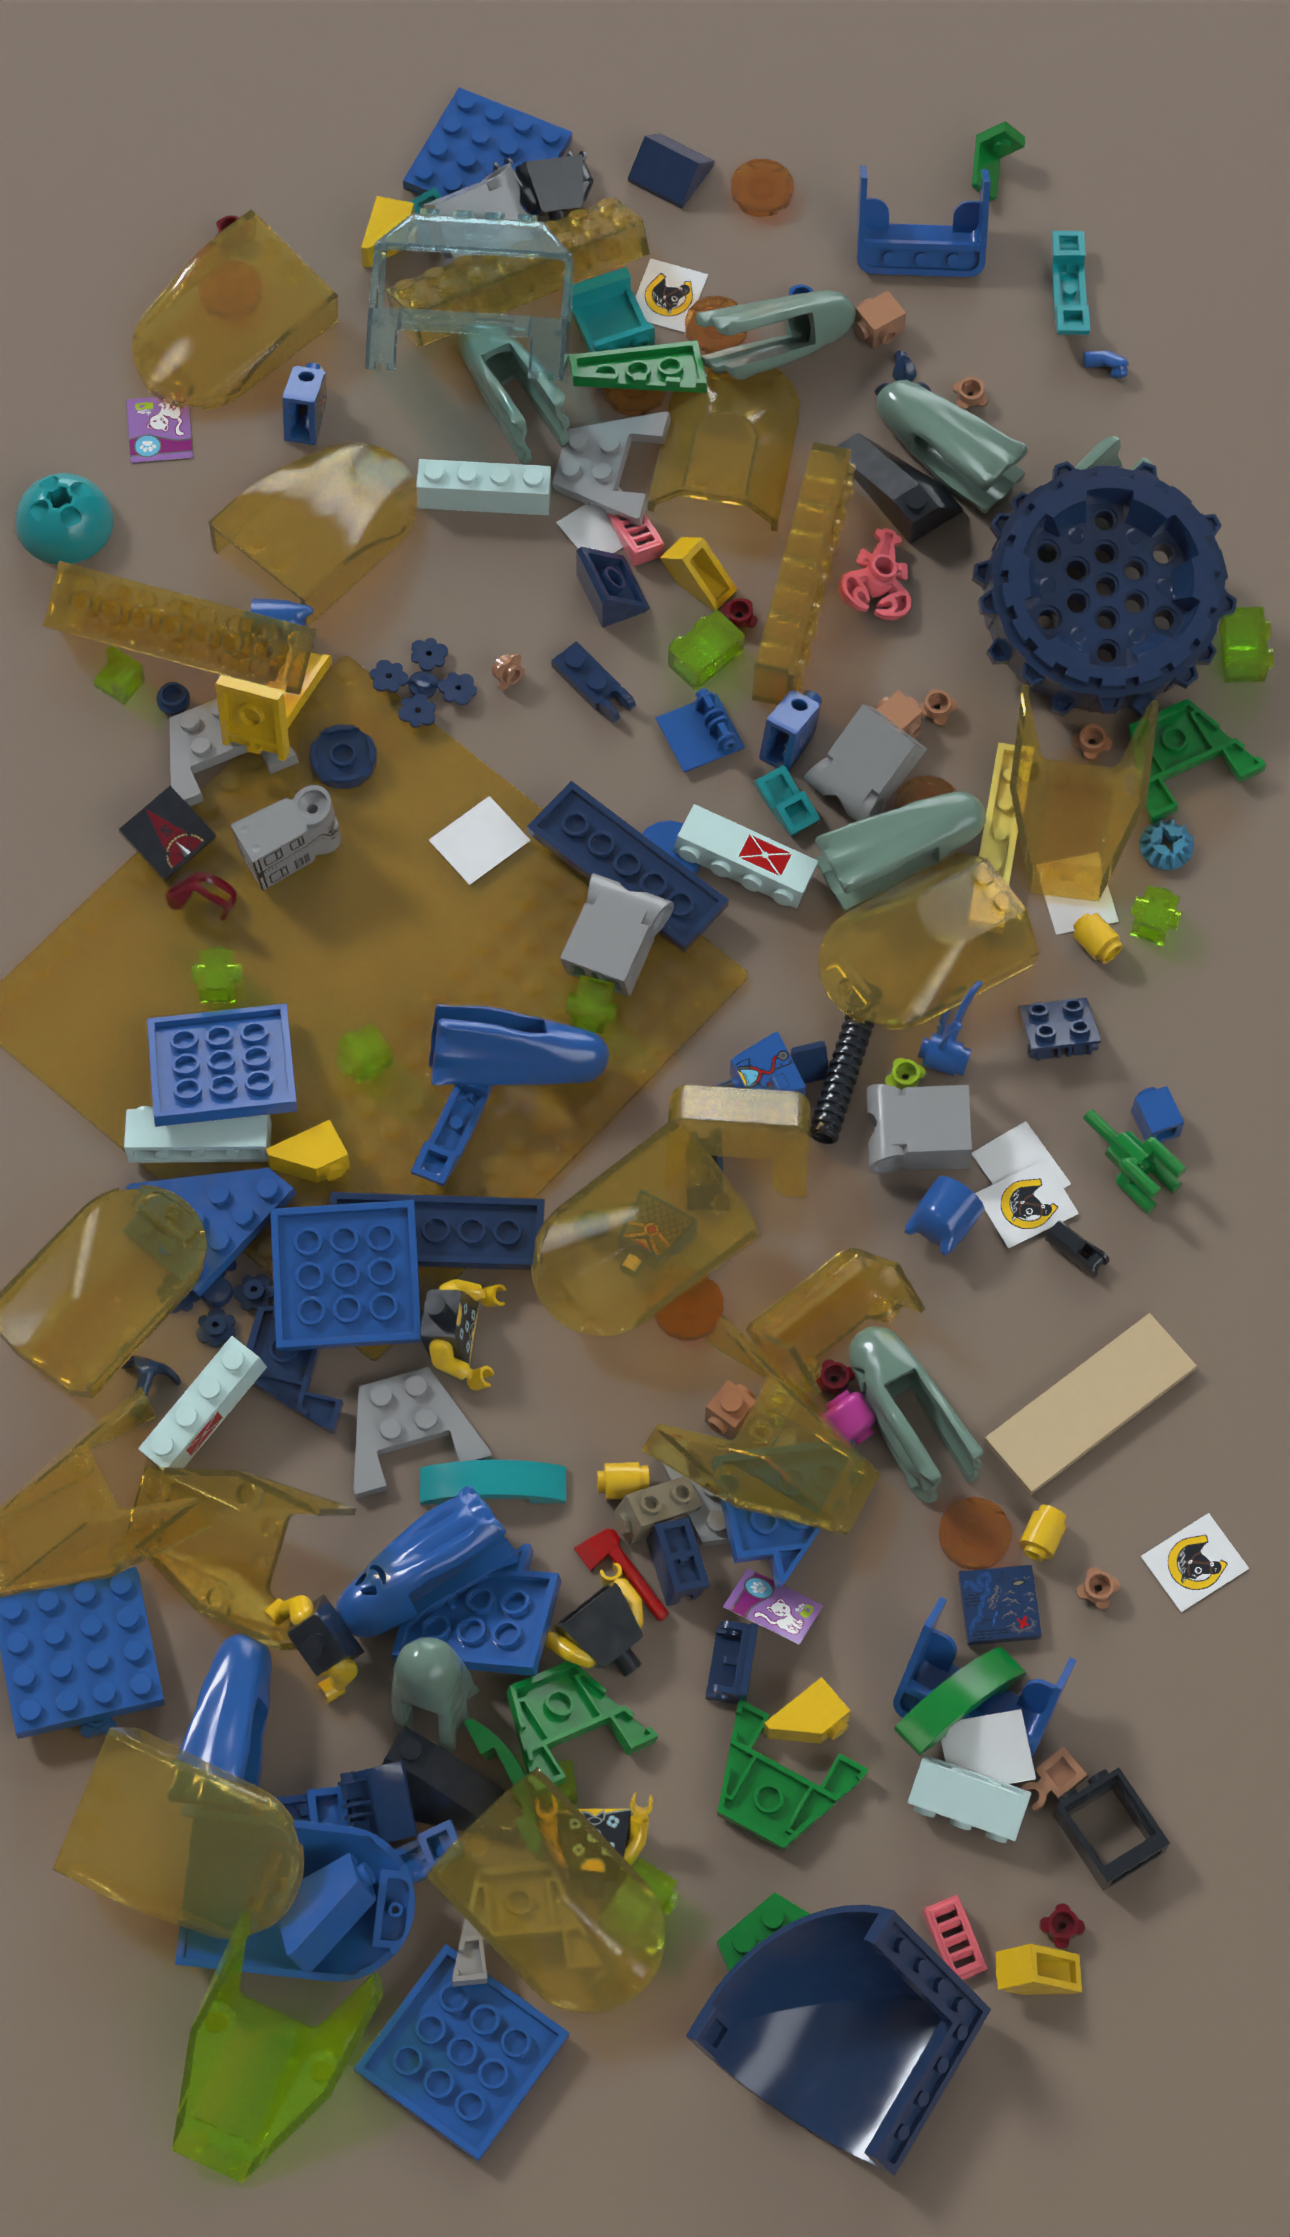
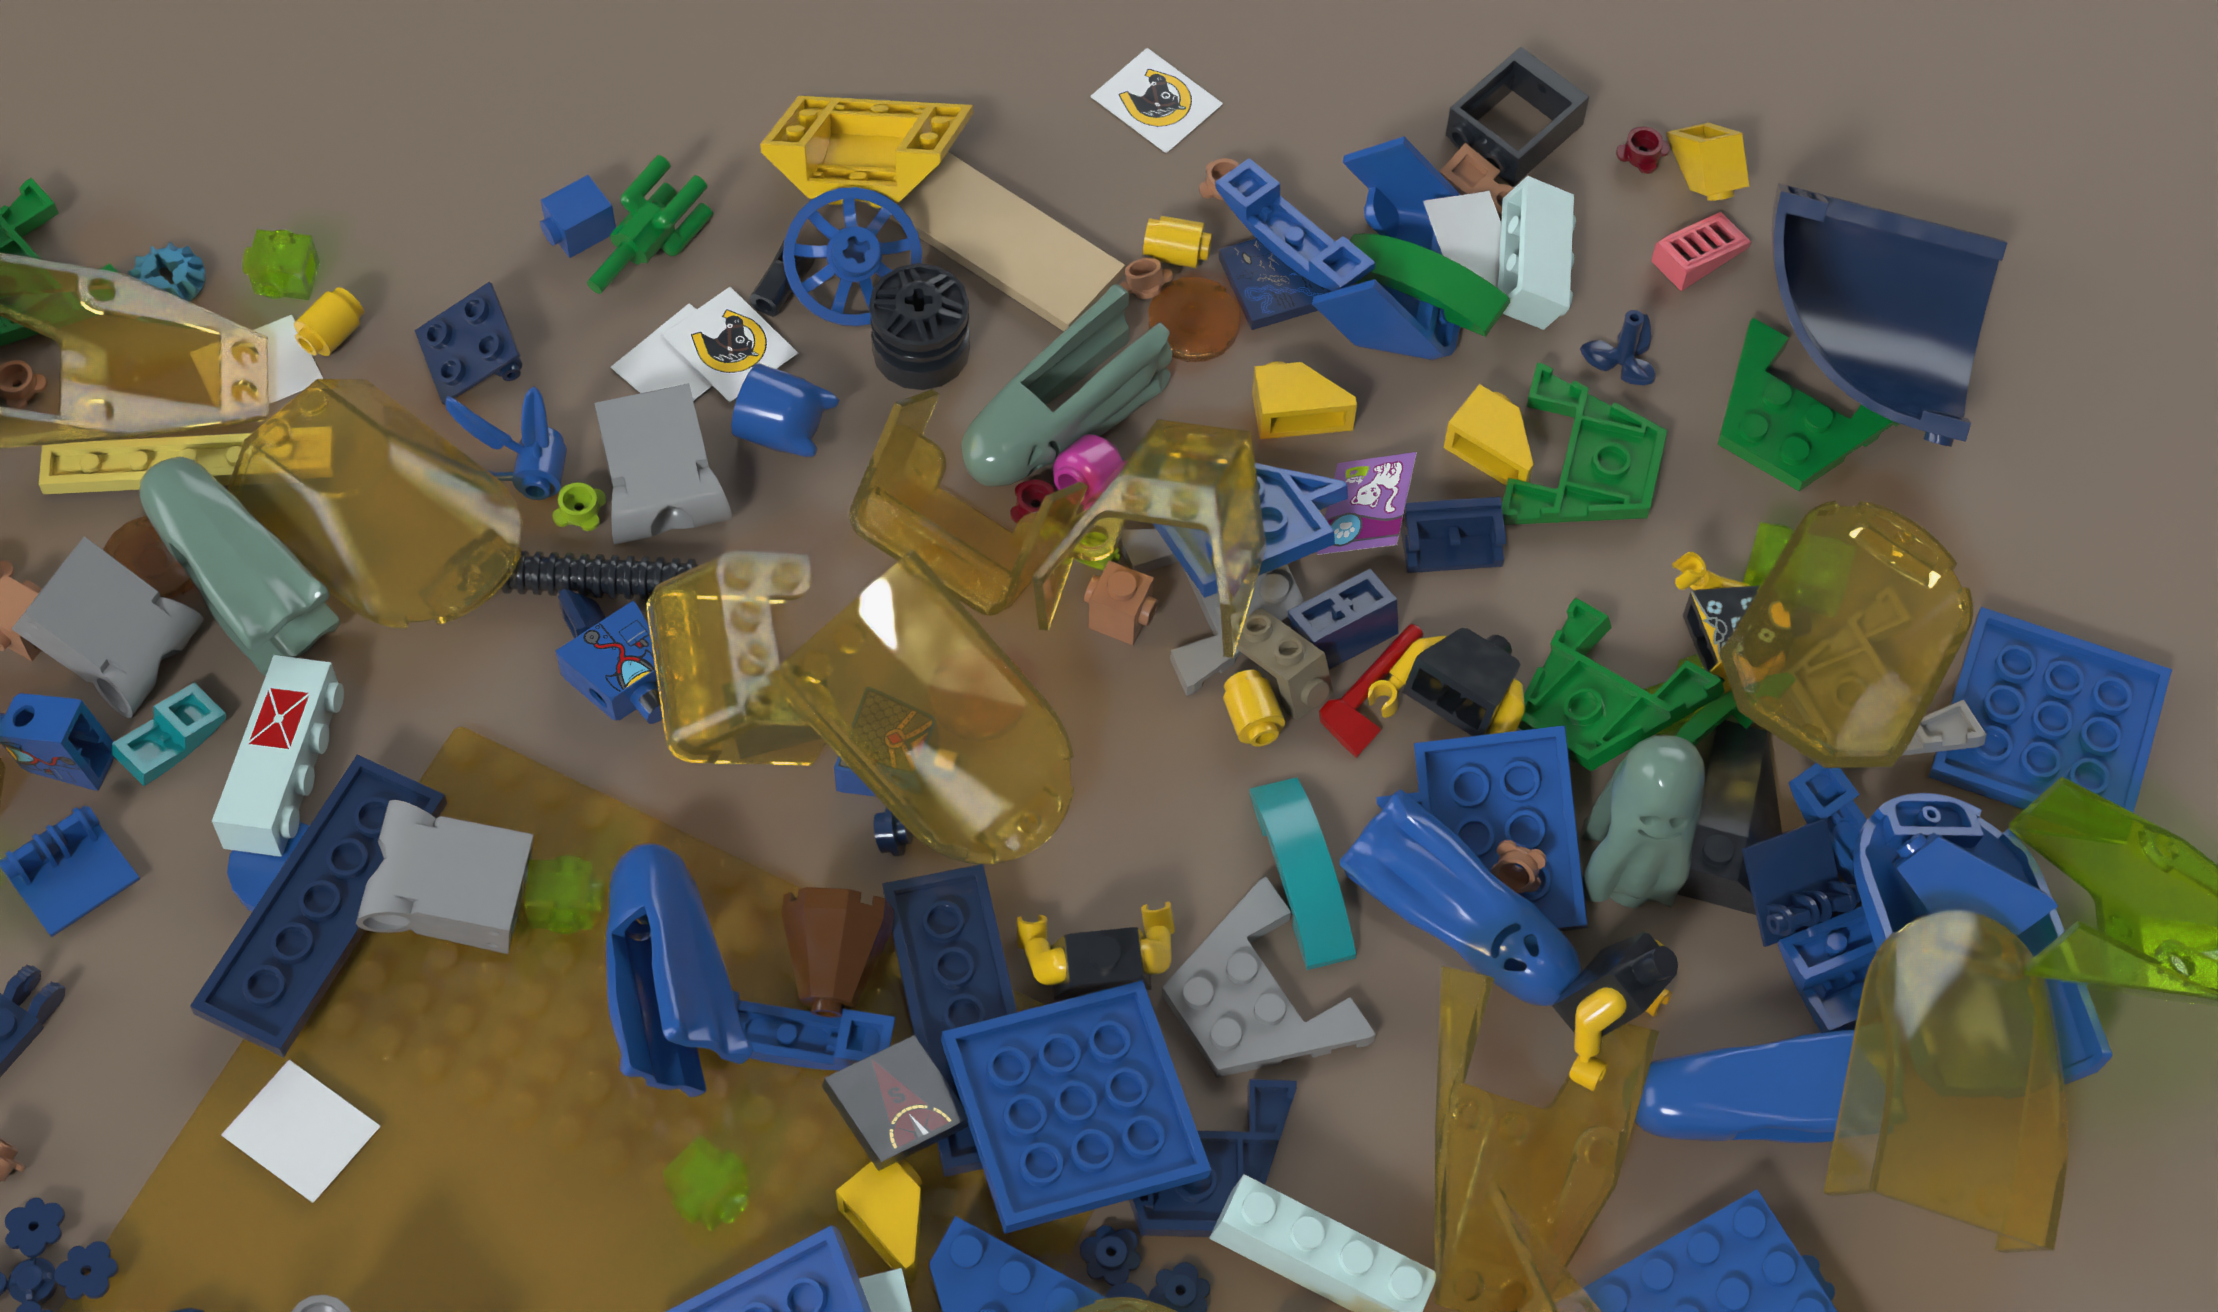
camera: 105 degrees left, 5 degrees down
(378, 1165) = (896, 1102): none -> tile
(439, 1612) = (1518, 878): none -> nougat plate
(503, 1156) = (834, 945): none -> reddish brown cone
(872, 1832) = (1632, 341): none -> dark blue plant
(877, 1580) = (1299, 402): none -> yellow slope
(993, 1342) = (920, 326): none -> black wheel
(1015, 1503) = (1145, 278): none -> nougat plate
(1028, 1616) = (1287, 232): none -> blue slope
(1070, 1289) = (850, 254): none -> blue wheel
(1178, 1320) = (862, 143): none -> yellow slope

